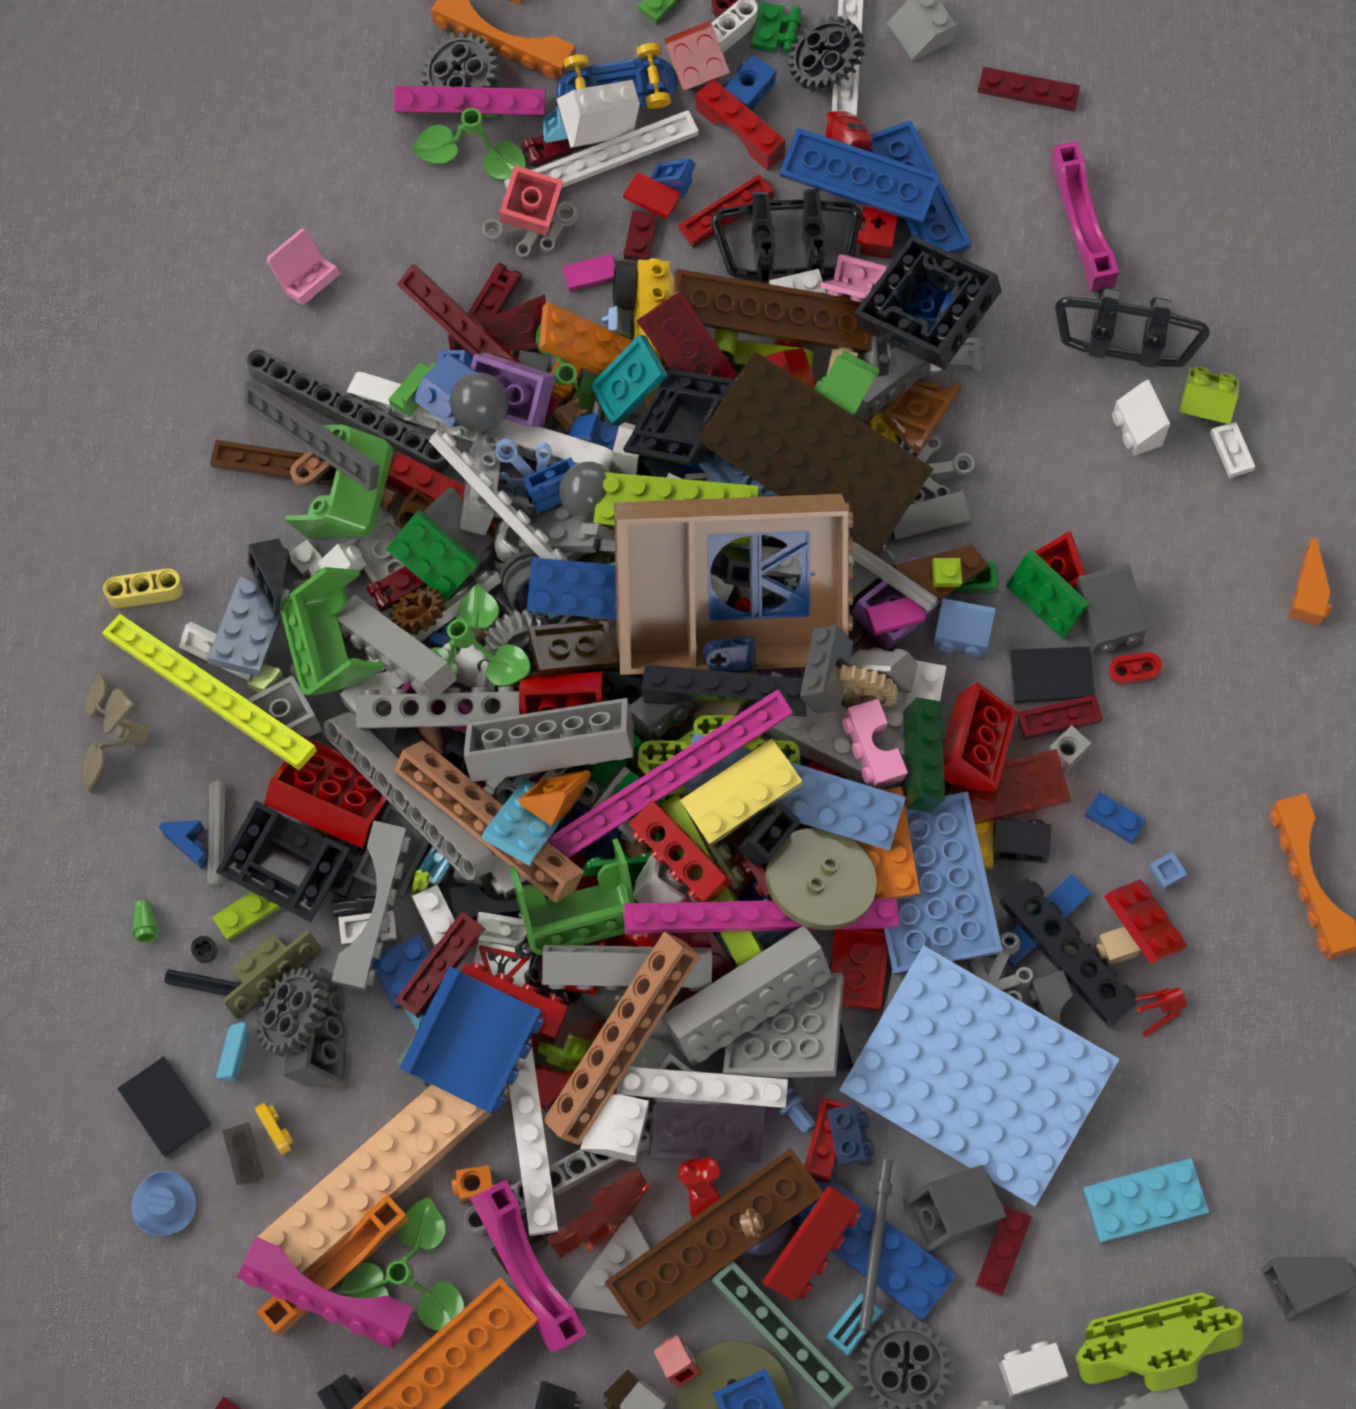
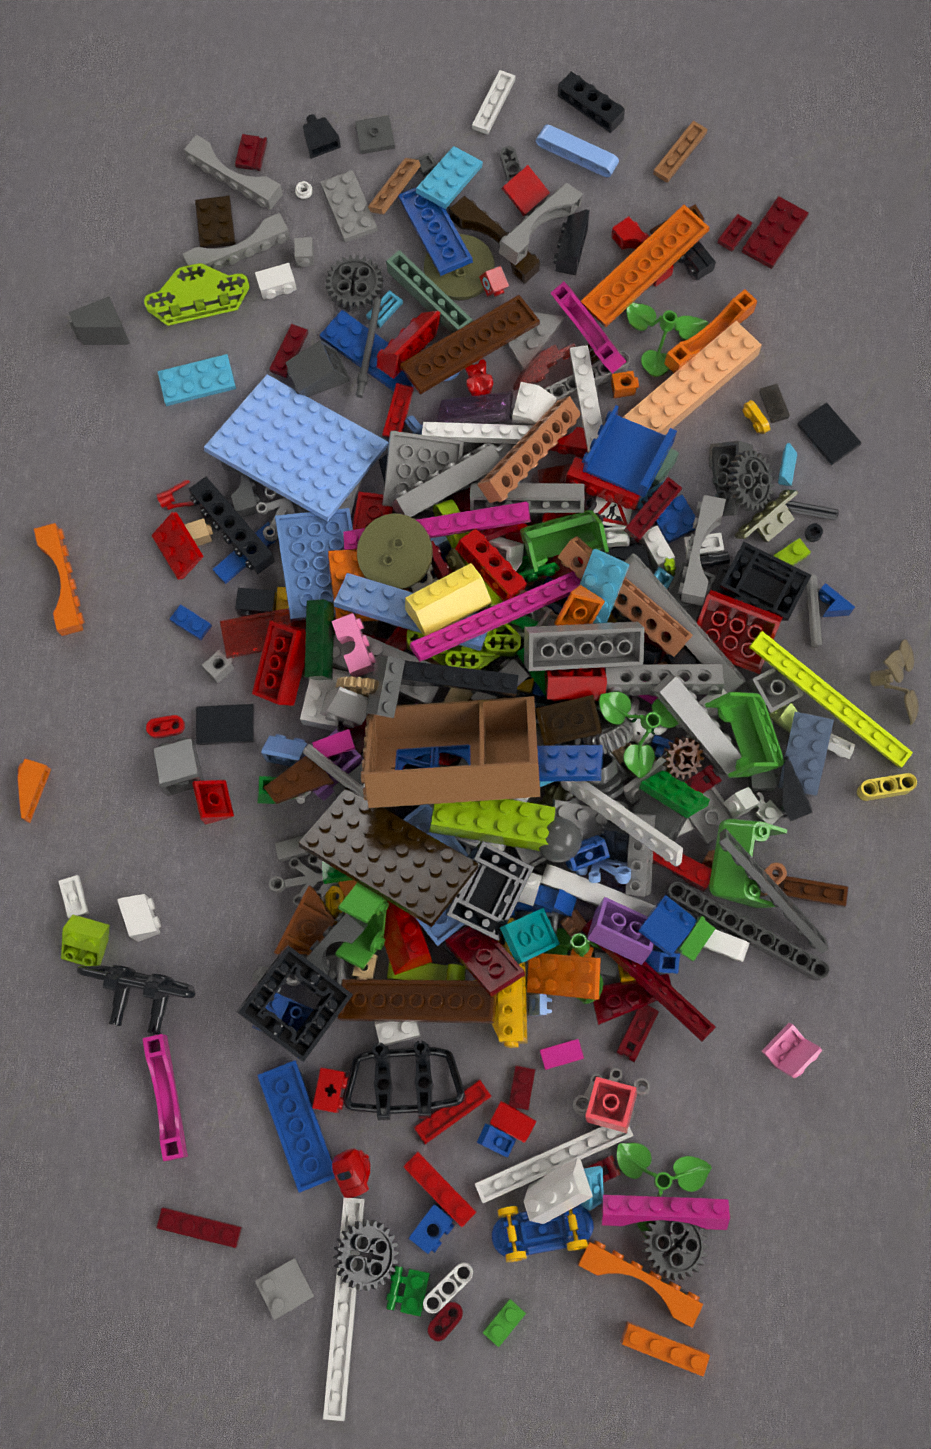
camera: 175 degrees left, 5 degrees up
(144, 924) = (856, 548): bright green cone -> none
(163, 1203) = (822, 373): medium blue hat -> none
(271, 1270) = (751, 319): dark pink arch -> none
(414, 501) = (690, 841): reddish brown brick -> none
(479, 402) = (645, 910): dark grey piece -> none
(570, 1055) = (564, 453): clear neon green bracket -> none
(603, 533) = (547, 801): light grey slope -> none
(624, 285) = (534, 1033): black tyre -> none
(696, 55) = (475, 1250): brick -> none
(733, 654) = (455, 704): dark blue piece -> none
(752, 1223) = (446, 343): medium nougat plate -> none
(768, 834) = (430, 570): black brick -> none
(850, 1136) = (381, 411): dark blue bracket -> none
(854, 277) = (351, 1034): bright pink bracket -> none
(860, 176) = (343, 1127): blue plate -> none
(946, 572) = (294, 774): lime plate -> none
(1047, 594) = (223, 775): green plate -> none
(1059, 717) = (222, 691): dark red plate -> none
(1167, 870) = (158, 584): medium blue plate -> none

